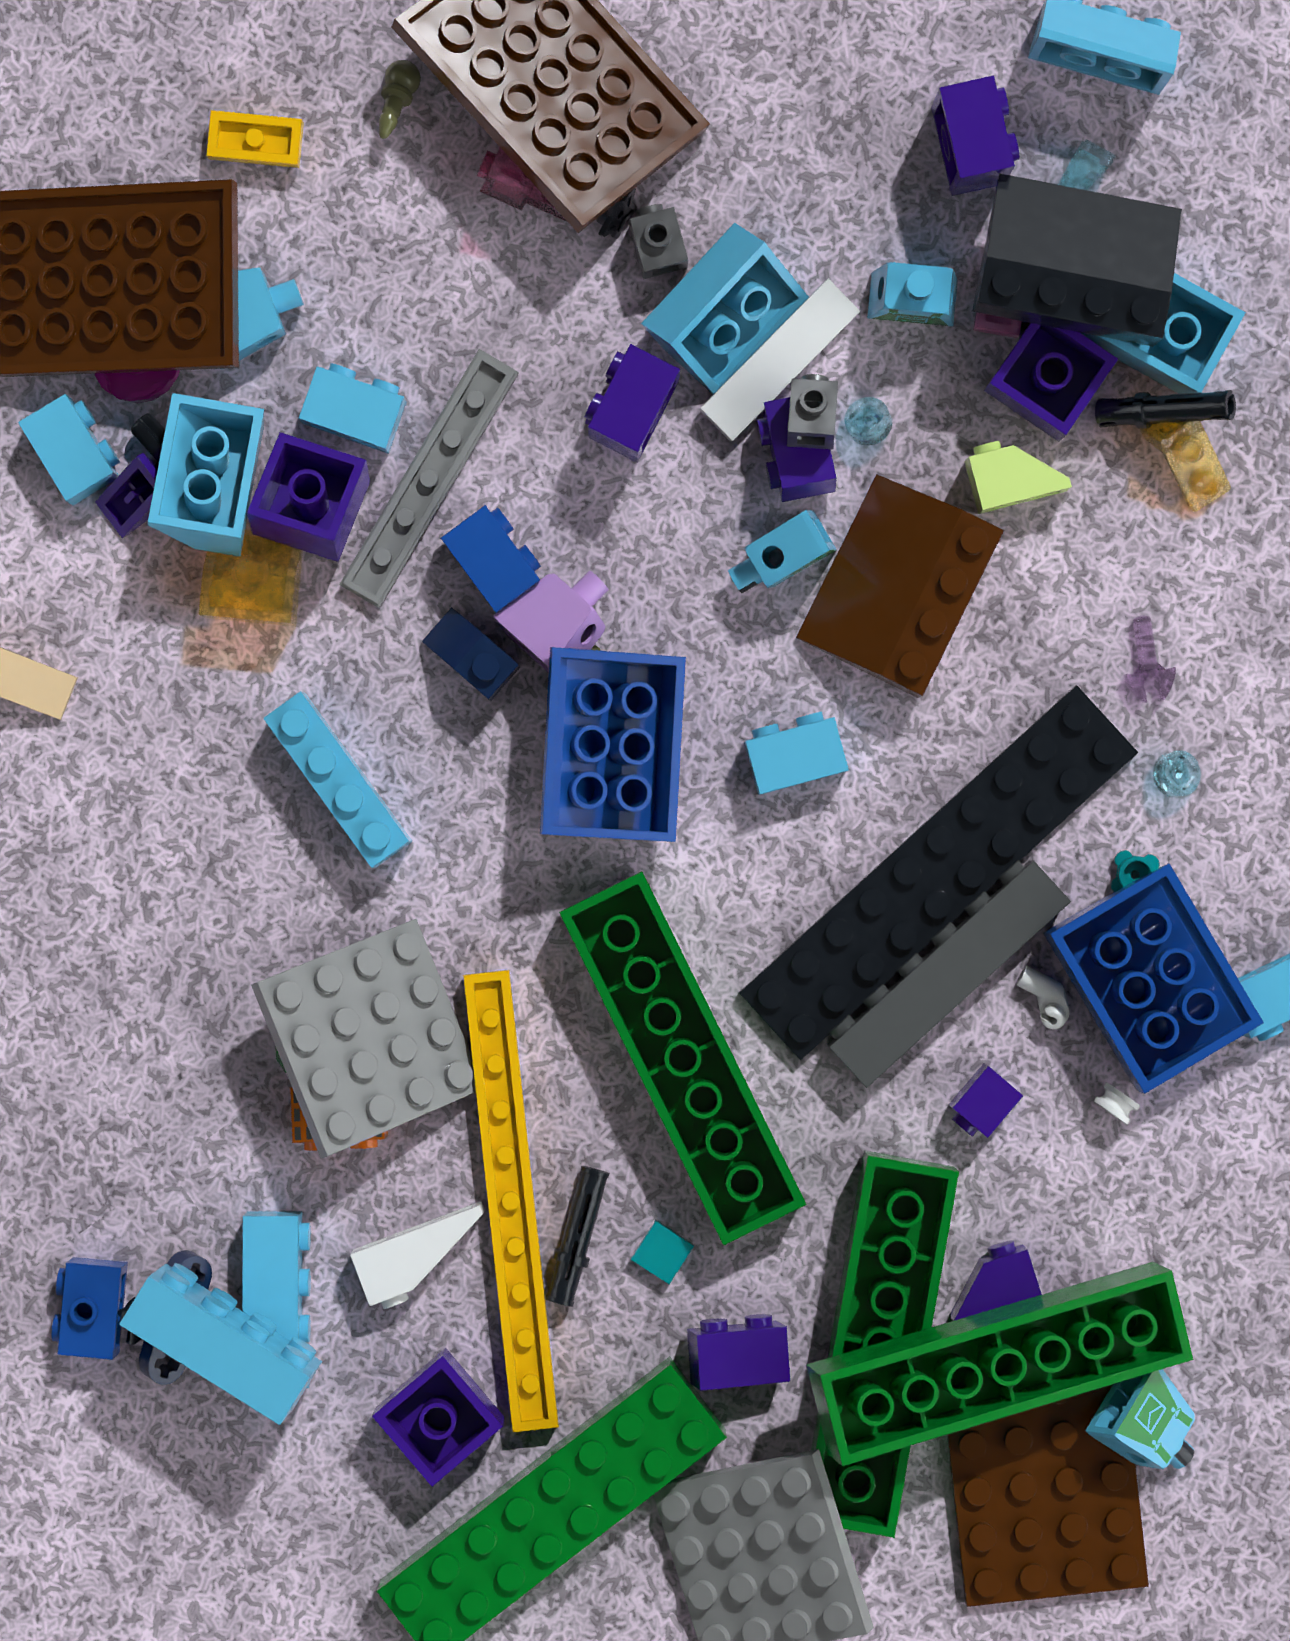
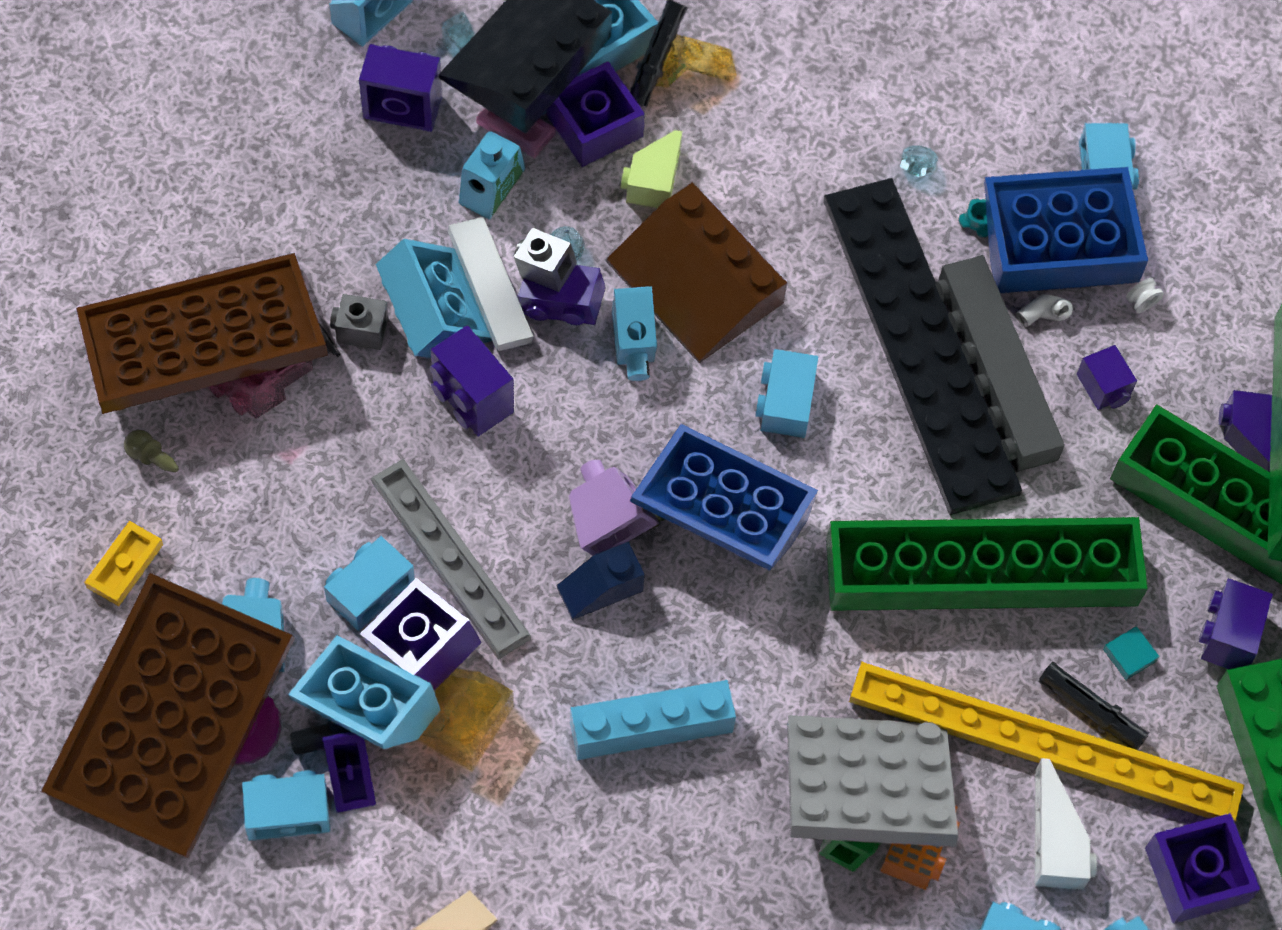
camera: 70 degrees left, 25 degrees down
(491, 557) = (535, 533): blue brick -> none
(1148, 662) = (831, 148): clear purple bar -> none

